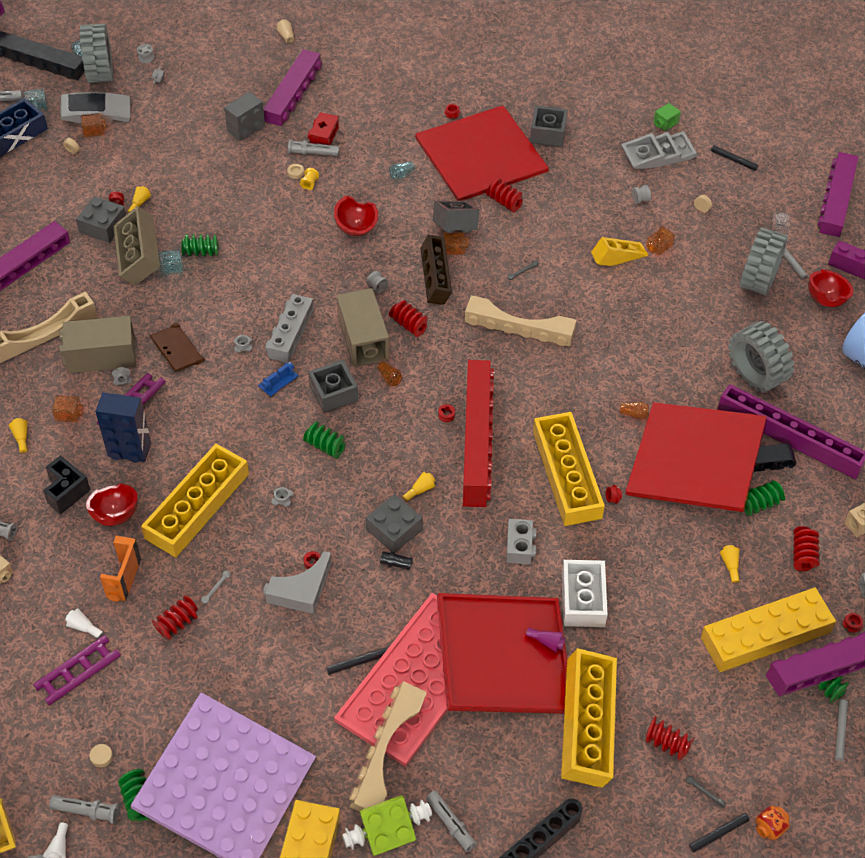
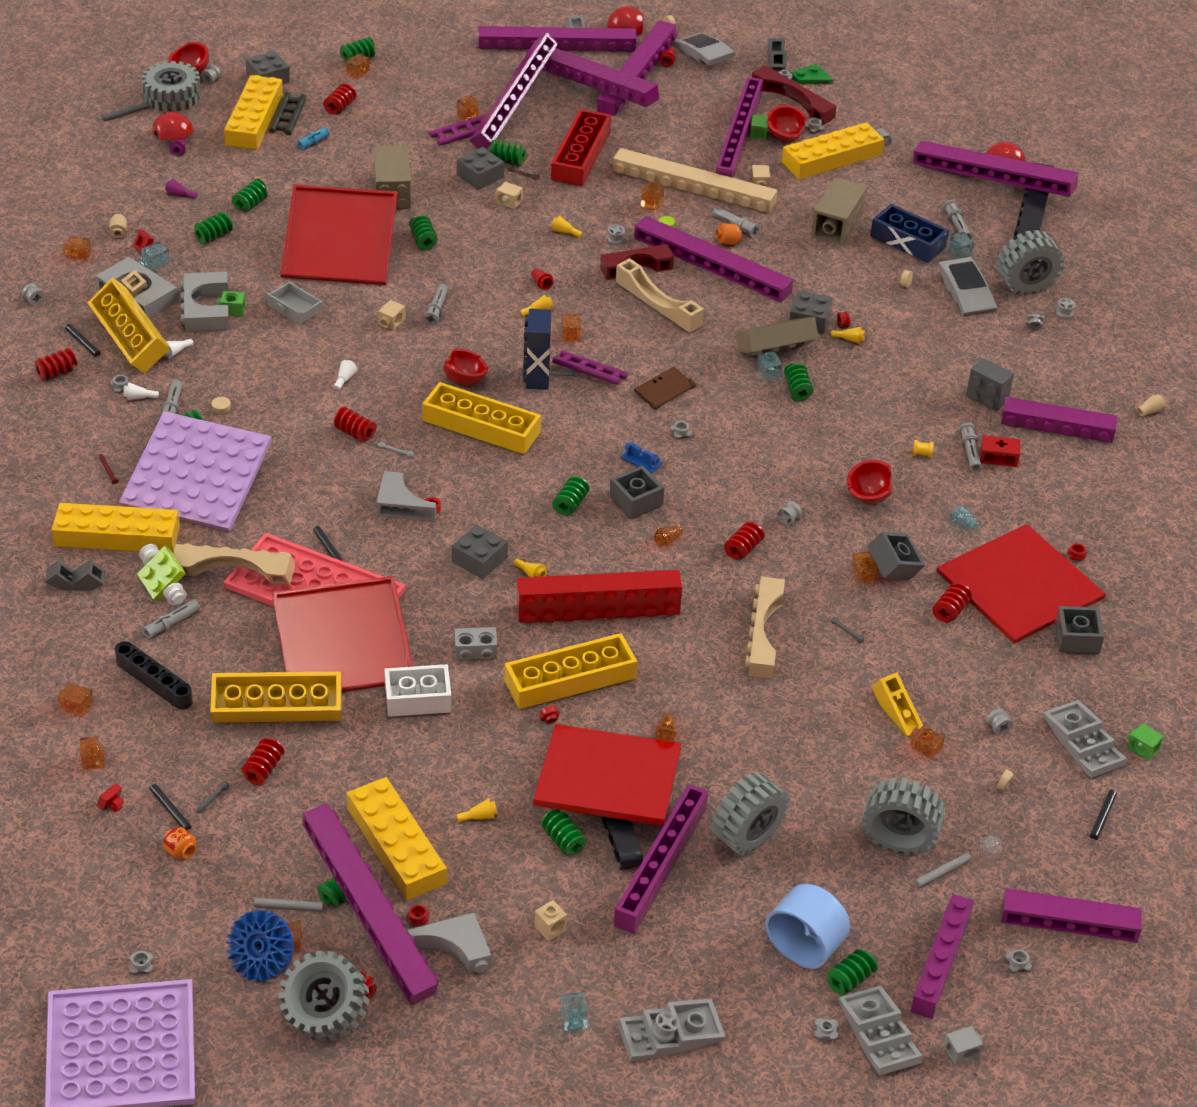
camera: 80 degrees right, 10 degrees down
(67, 485) = (482, 339): black brick -> none
(73, 682) = (302, 388): magenta bar -> none
(93, 125) = (941, 287): clear orange brick -> none
(98, 344) = (646, 330): dark tan brick -> none
(121, 372) = (618, 356): light grey plate -> none
(128, 554) = (396, 383): orange panel -> none
(278, 493) = (501, 477): light grey plate -> none
(289, 328) = (707, 457): light grey brick -> none
(295, 171) = (935, 437): tan tile -> none
(363, 327) = (716, 501): dark tan brick -> none
(392, 559) = (440, 558): black pin -> none
(436, 270) = (816, 551): dark brown brick -> none
(550, 639) = (360, 670): magenta cone -> none
(805, 548) = (503, 871): red piece -> none
(829, 288) = (893, 892): red cylinder -> none

